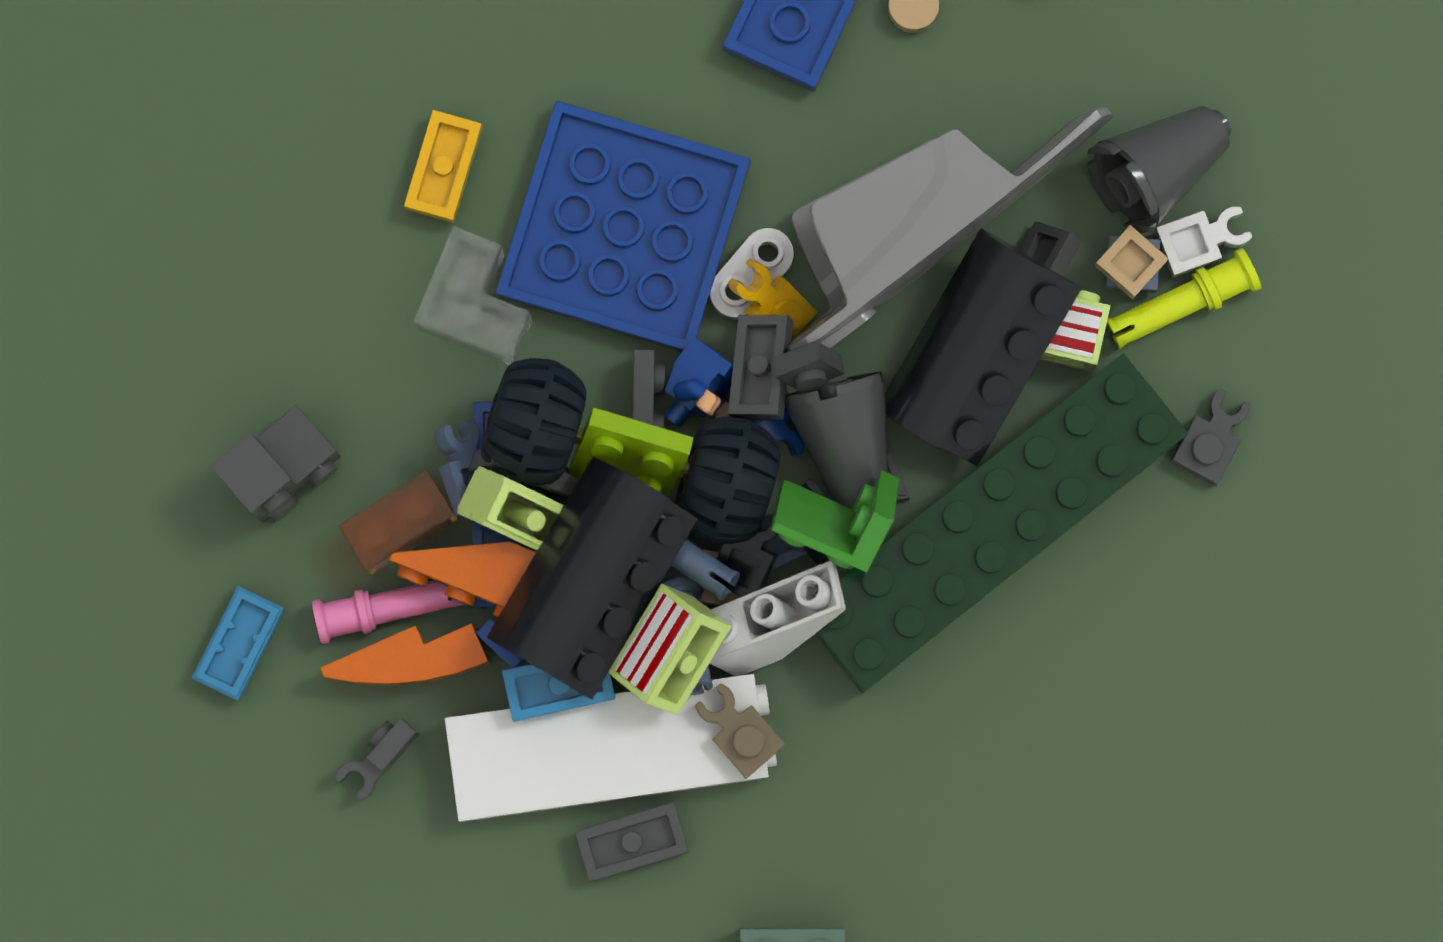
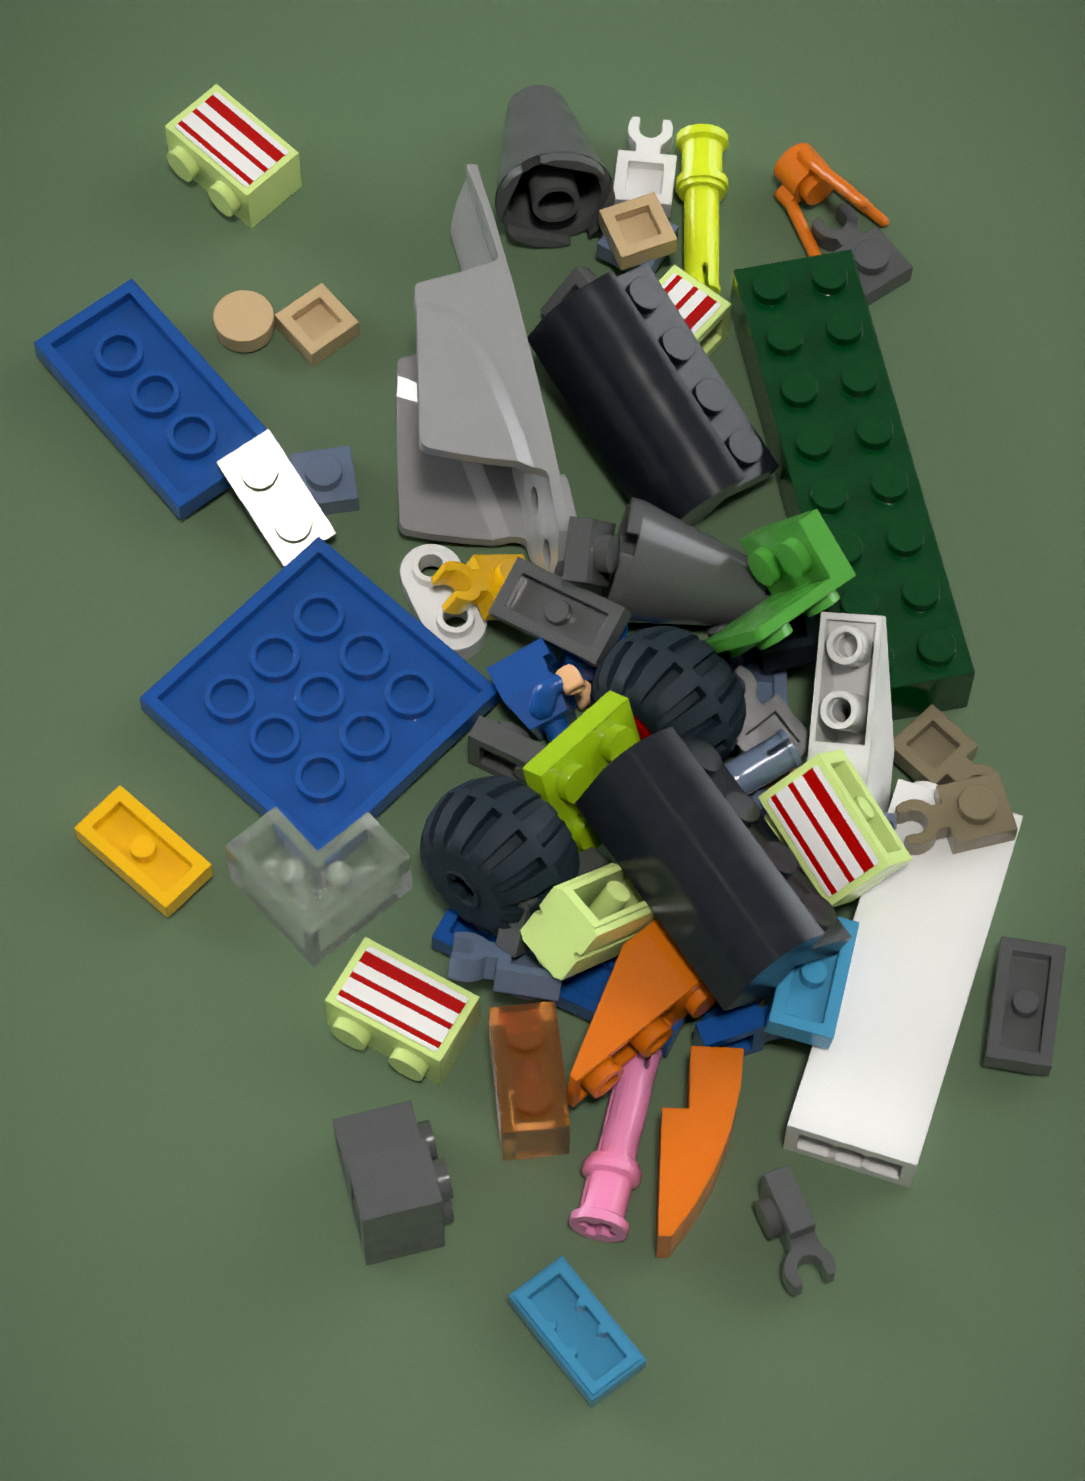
camera: 65 degrees left, 20 degrees down
(407, 410) = (401, 1012): none -> brick
(766, 111) = (275, 497): none -> plate
(802, 691) = (937, 750): none -> dark tan plate
(803, 131) = (329, 478): none -> sand blue plate
(939, 61) = (317, 324): none -> tan tile
(1258, 367) = (810, 179): none -> orange plant

